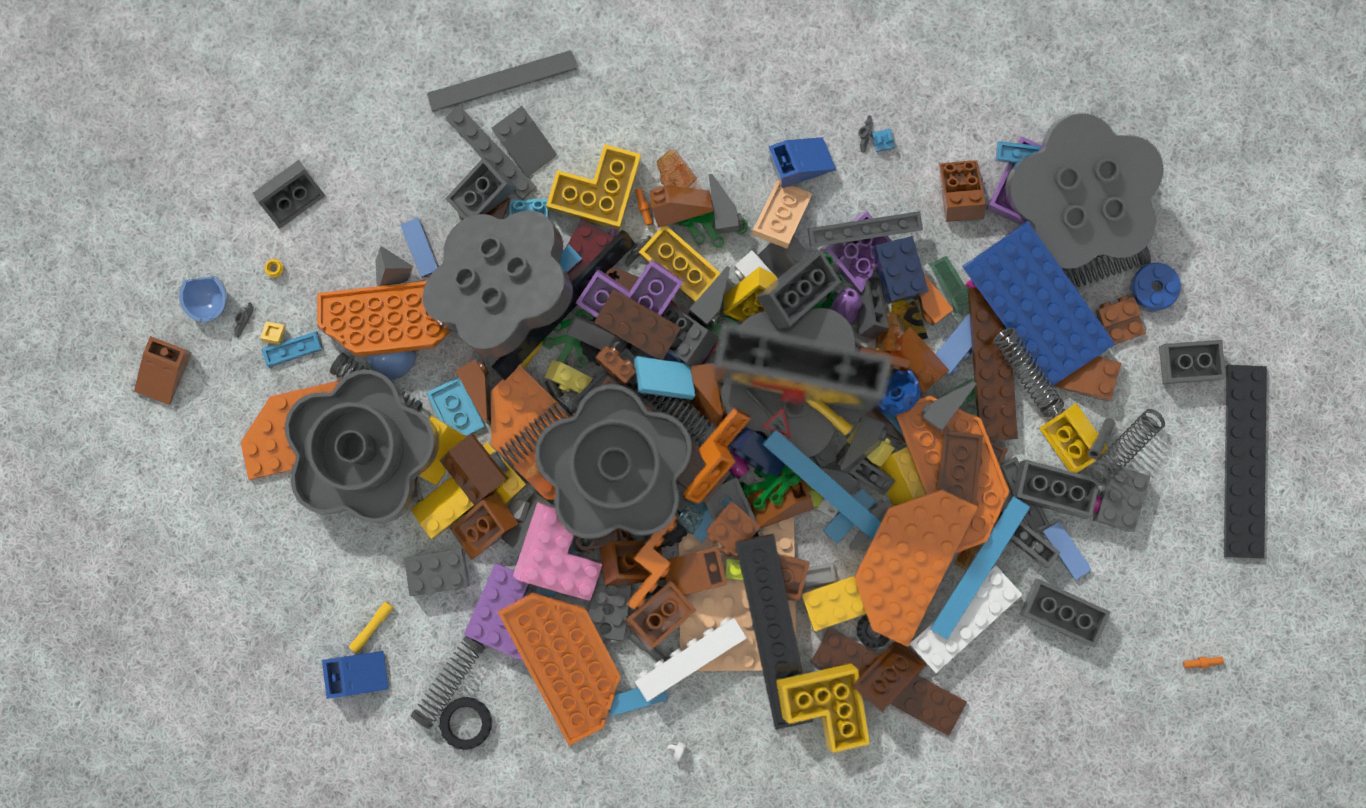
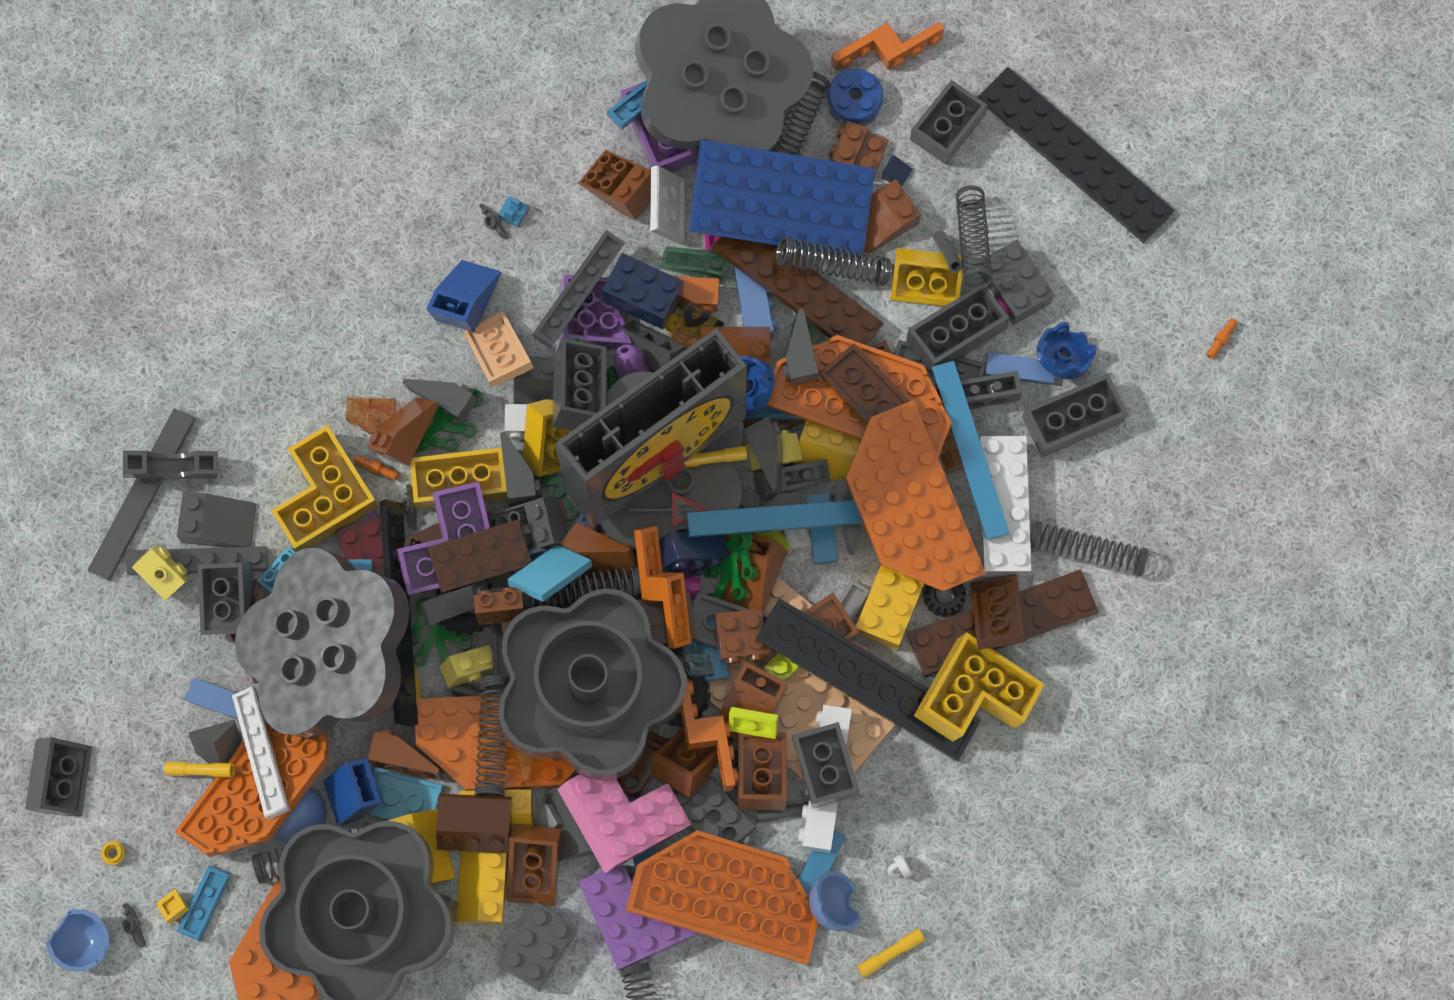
camera: 55 degrees left, 10 degrees down
(360, 265) = (175, 768): none -> yellow piece
(403, 303) = (260, 753): none -> white tile
(430, 378) = (352, 791): none -> blue brick
(462, 138) = (161, 571): none -> light yellow brick
(531, 81) = (156, 465): none -> dark grey arch
(616, 729) = (831, 902): none -> medium blue cylinder
(631, 793) = (903, 945): none -> yellow piece
(683, 585) = (753, 723): none -> neon yellow plate
(694, 654) = (825, 765): none -> dark grey brick
(973, 233) = (667, 204): none -> white tile
(1003, 736) = (1139, 563): none -> dark grey piece
(1112, 571) = (1076, 347): none -> blue plate
(1128, 357) = (896, 170): none -> dark blue slope
(1209, 277) = (887, 46): none -> orange bracket

